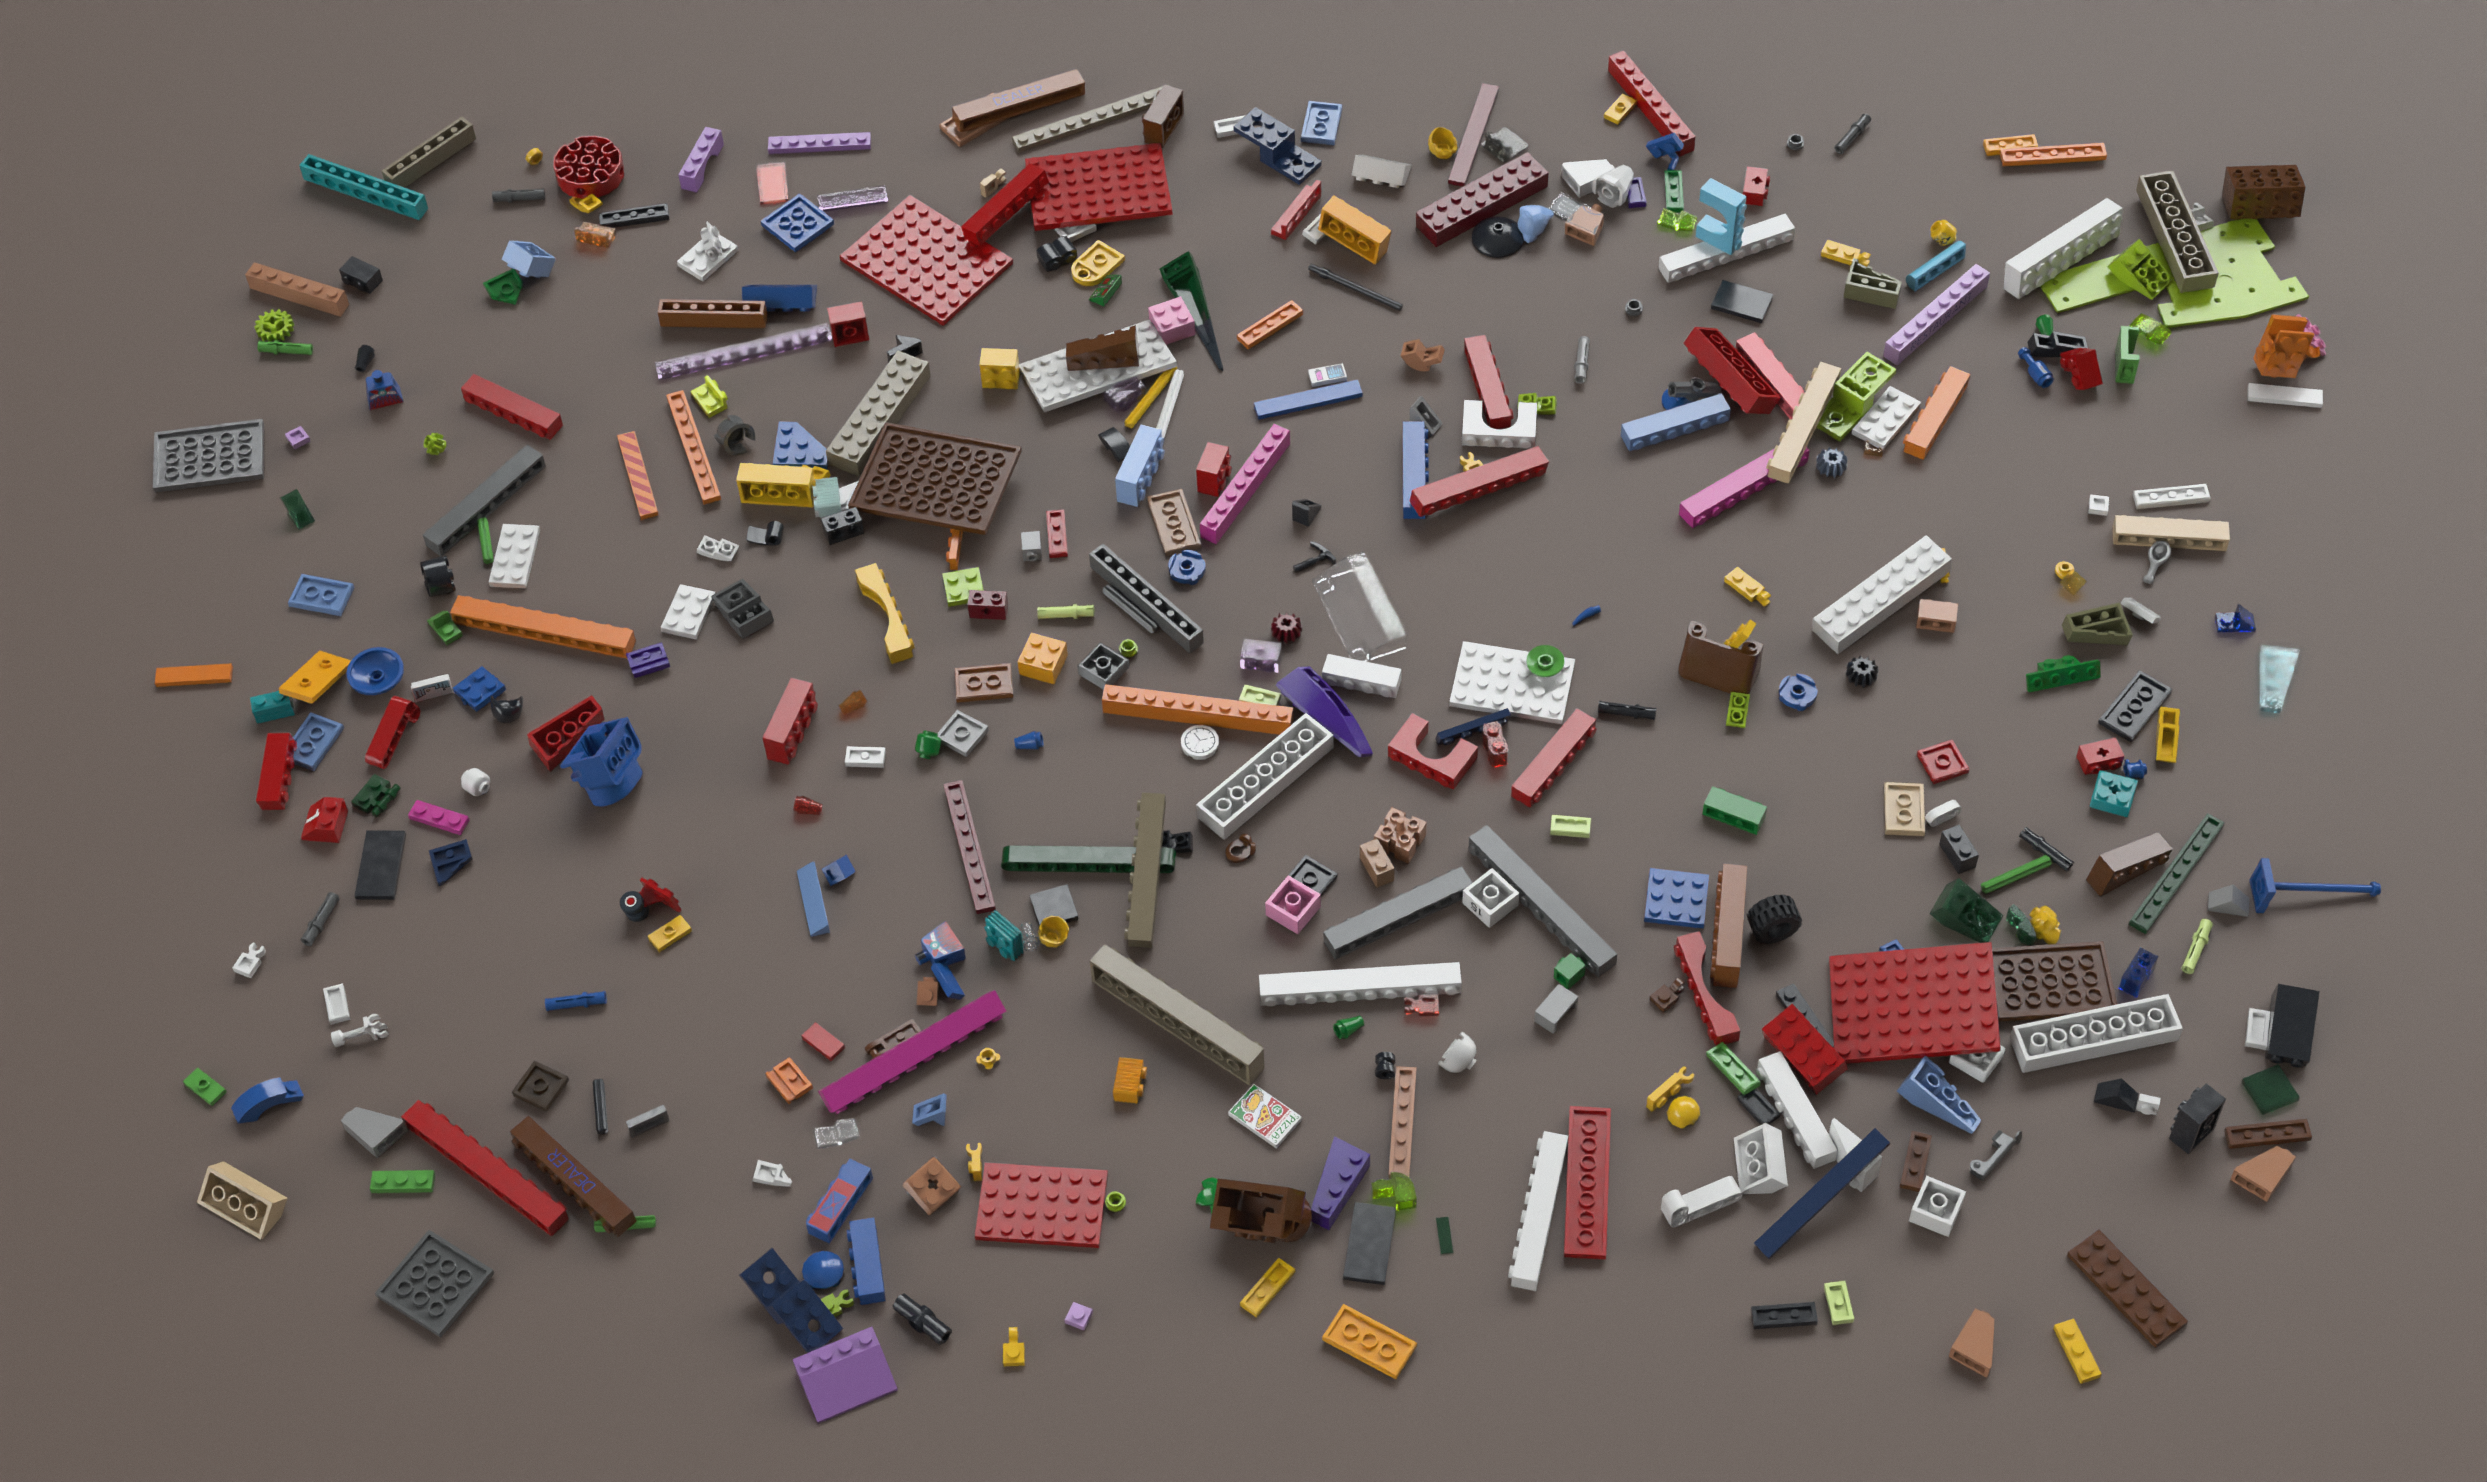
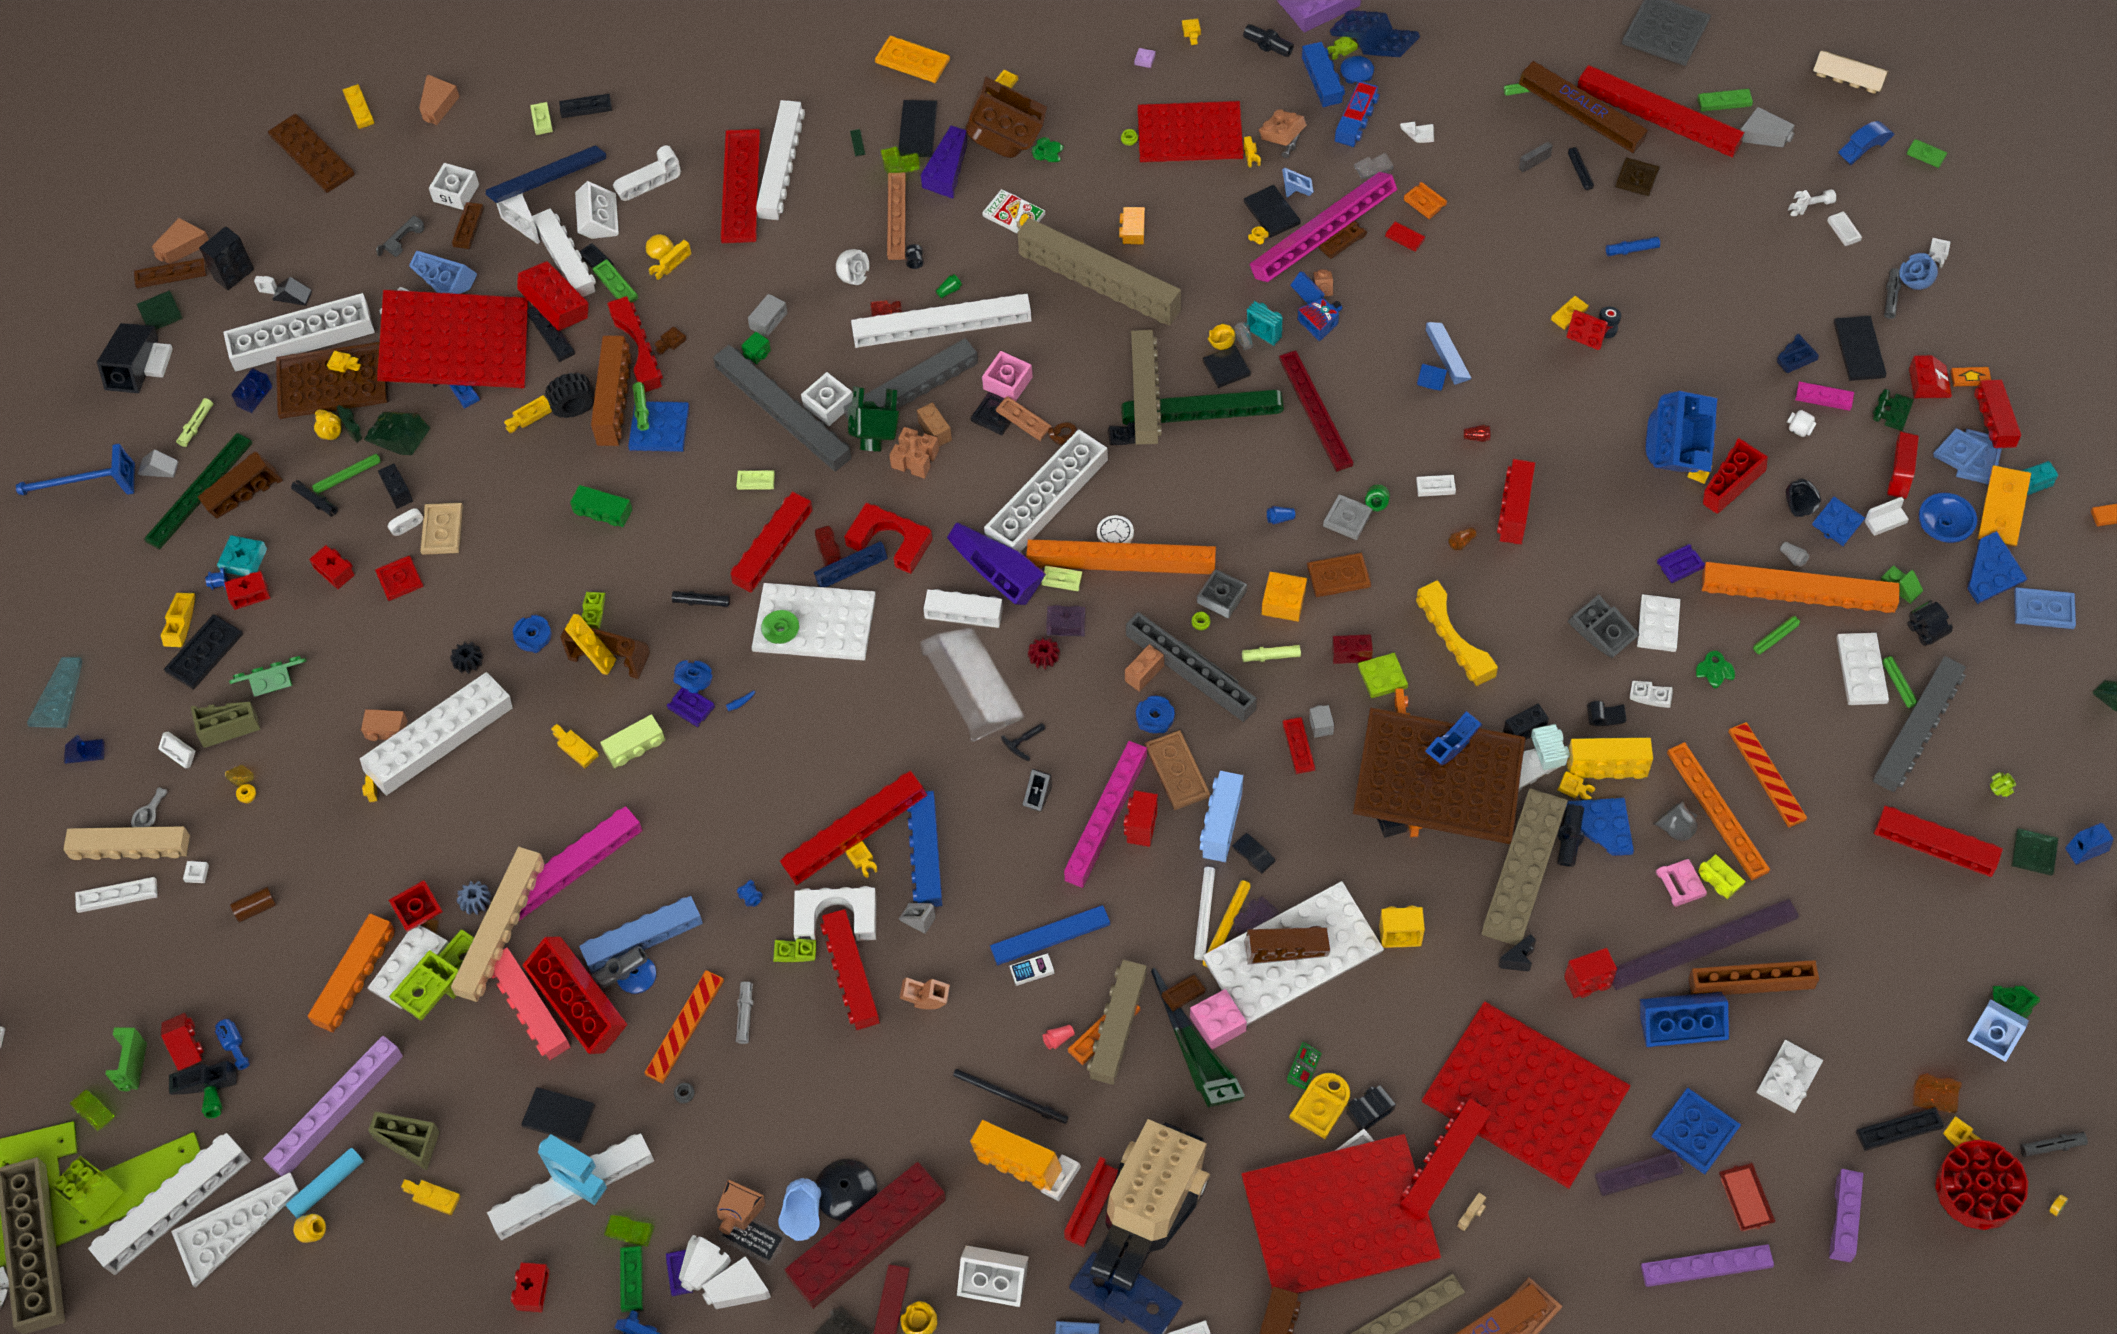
camera: 175 degrees right, 5 degrees up
(281, 823) = (1969, 376): none -> orange tile
(284, 926) = (1919, 271): none -> medium blue cylinder
(330, 742) = (1960, 450): none -> medium blue tile
(353, 627) = (1993, 569): none -> blue plate
(431, 398) = (2034, 852): none -> clear green tile
(534, 658) = (1795, 554): none -> light grey cone
(581, 590) = (1776, 635): none -> bright green axle
(650, 565) = (1715, 671): none -> green plate
(739, 398) = (1686, 879): none -> bright pink plate
(830, 430) = (1570, 835): none -> black piece
(920, 489) = (1453, 742): none -> blue arch
(966, 1089) = (1272, 211): none -> black tile
(1193, 601) = (1144, 667): none -> nougat brick
(1197, 345) = (1183, 992): none -> reddish brown tile
(1247, 189) = (1150, 1200): none -> tan piece
(1257, 317) = (1118, 1022): none -> dark tan brick
(1279, 863) = (1023, 418): none -> nougat tile
(1310, 322) = (1055, 1037): none -> coral cone
(1433, 863) = (872, 422): none -> dark green piece
(1576, 446) = (749, 894): none -> blue brick
(1622, 634) = (685, 677): none -> blue plate
(1634, 356) = (684, 1026): none -> orange tile
(1635, 610) = (691, 706): none -> dark purple plate
(1690, 581) = (633, 741): none -> yellowish green brick
(1694, 897) = (641, 411): none -> bright green pin
(1821, 920) = (528, 414): none -> yellow plate
(1883, 451) = (415, 906): none -> red slope
(2008, 241) = (218, 1234): none -> white wing
(2014, 772) = (332, 566): none -> red brick
(2039, 477) = (253, 904): none -> reddish brown brick
(2040, 990) = (342, 361): none -> yellow plate

